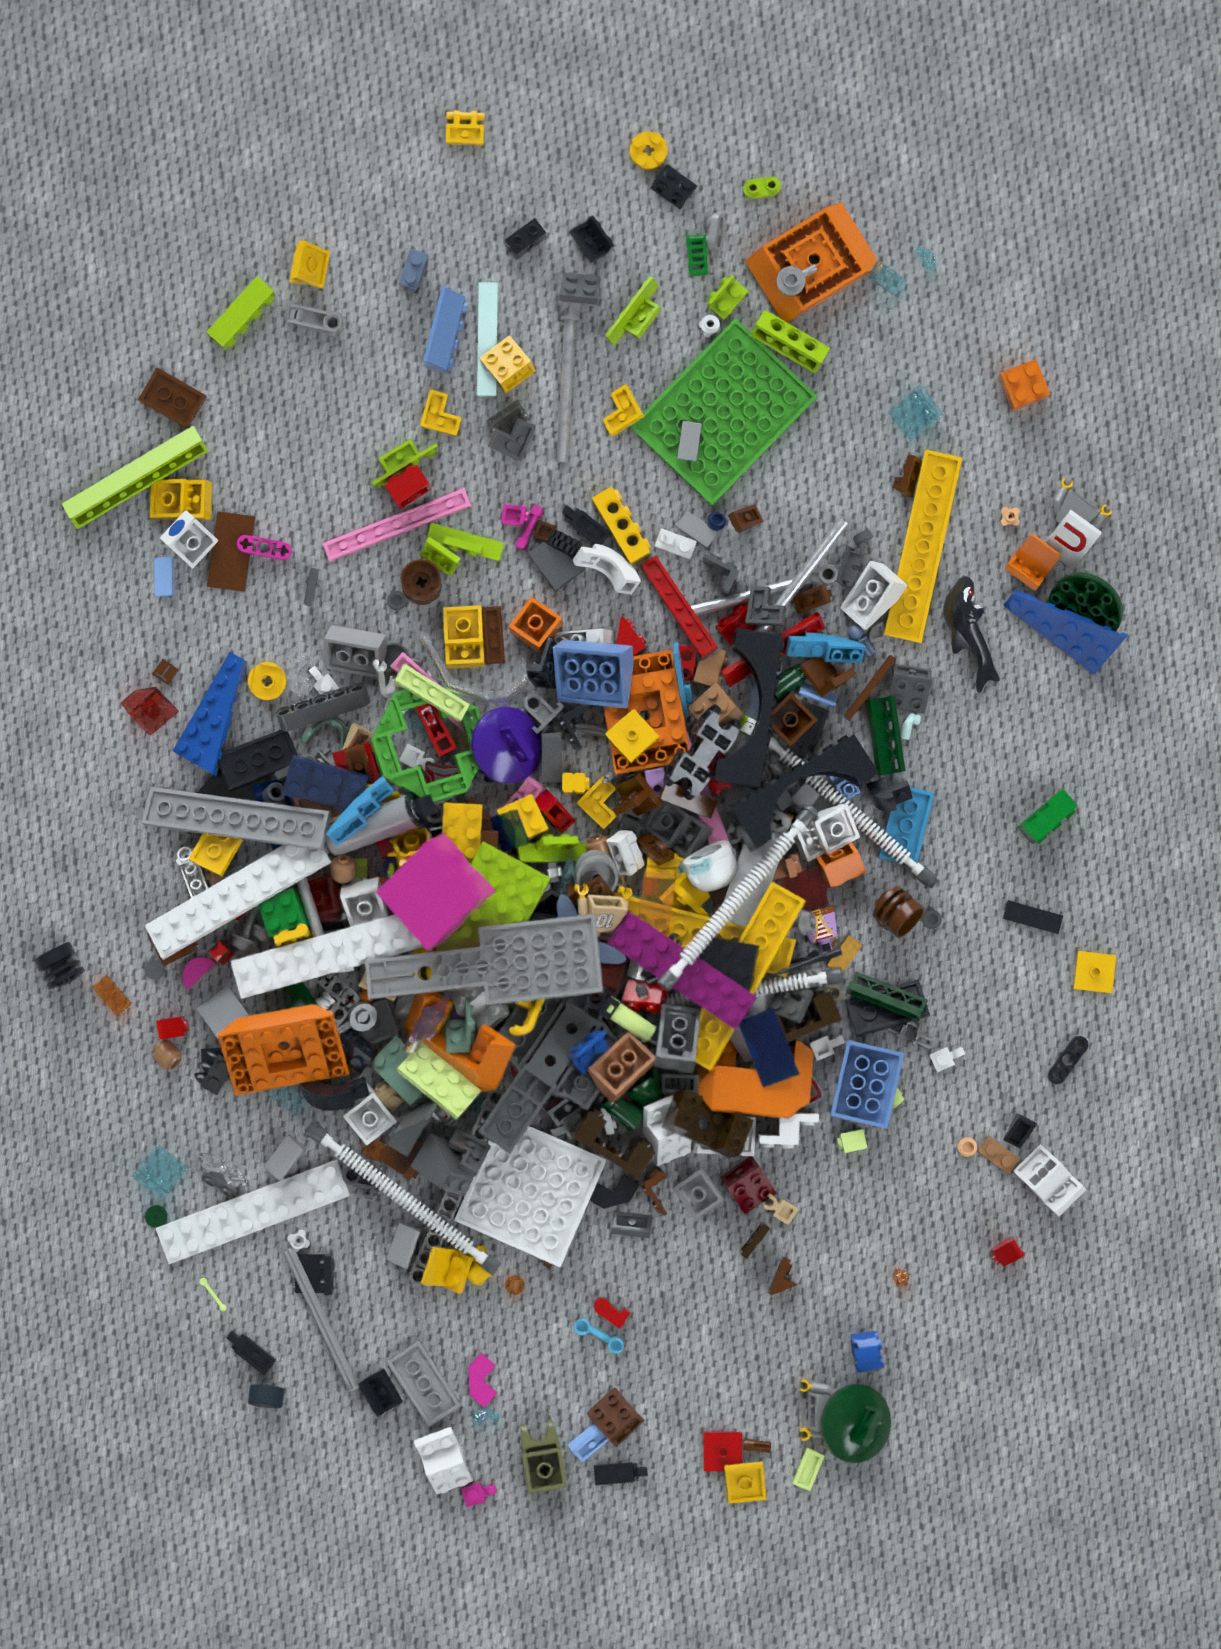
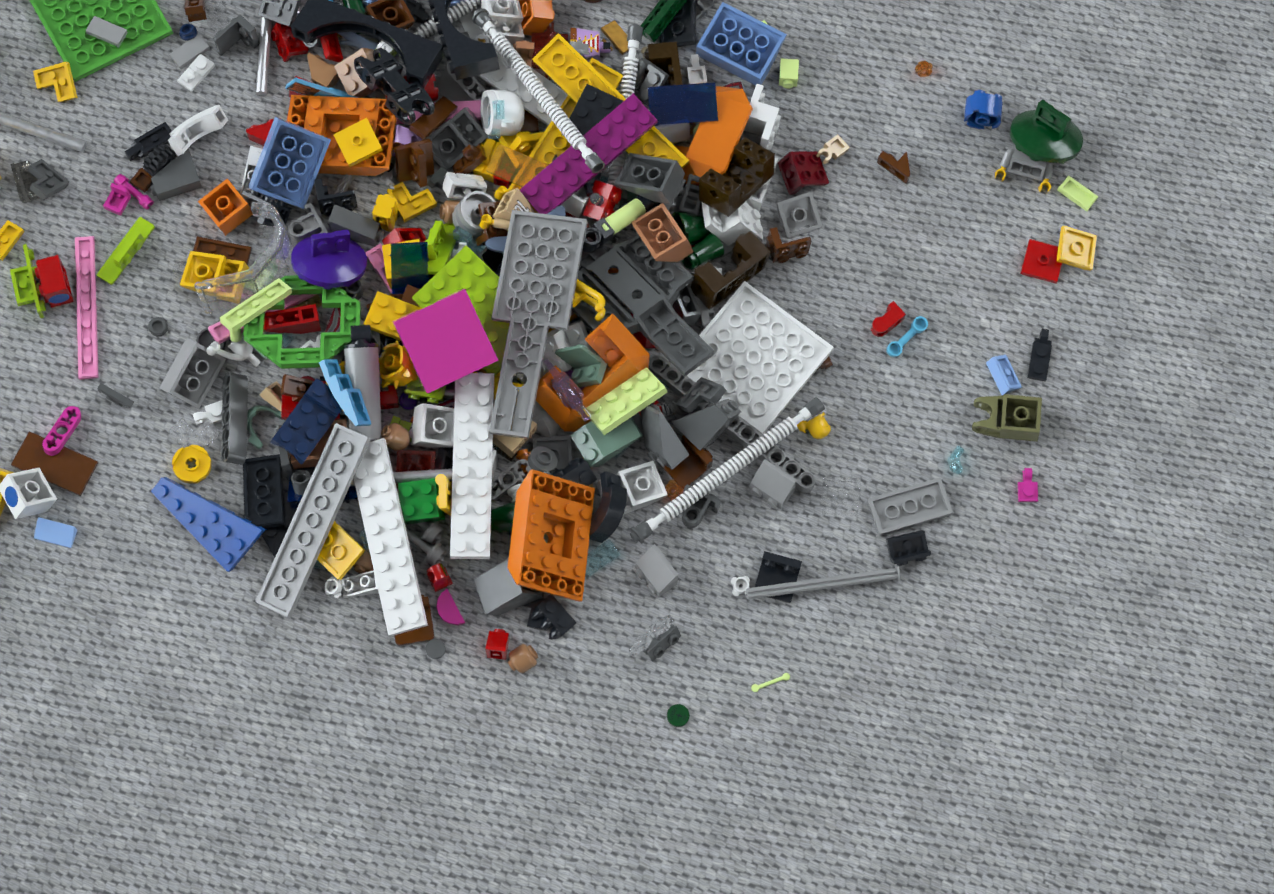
camera: 75 degrees left, 15 degrees down
(59, 965) = (401, 735): black wheel -> none
(112, 995) = (447, 696): clear orange plate -> none
(149, 708) = (177, 580): clear red slope -> none
(160, 1172) = (635, 697): clear light blue bracket -> none
(165, 672) = (148, 557): reddish brown tile -> none
(251, 1352) = (837, 659): black hinge -> none
(252, 1211) = (700, 622): white plate -> none
(266, 1396) = (883, 655): black wheel -> none
(388, 1095) = (624, 460): tan bracket -> none
(424, 571) = (147, 286): reddish brown wheel -> none
(440, 556) = (130, 272): lime bracket -> none
(443, 1460) = (989, 505): white bracket -> none
(447, 1268) = (807, 450): yellow bracket -> none
(478, 1387) = (927, 459): dark pink tile -> none
(514, 1285) = (838, 399): clear orange plate -> none
(588, 1052) = (638, 256): blue bracket -> none
(615, 1417) = (986, 343): reddish brown bracket -> none
(622, 1194) = (781, 283): black tile -> none
(631, 1224) = (811, 282): dark grey slope -> none
(632, 553) = (171, 115): yellow brick -> none
(678, 607) = (254, 82): red tile -> none
(754, 1240) = (855, 175): dark brown tile -> none
(755, 1445) = (1045, 230): reddish brown piece -> none
(804, 796) = (464, 23): light grey brick -> none
(812, 958) = (614, 54): black piece -> none

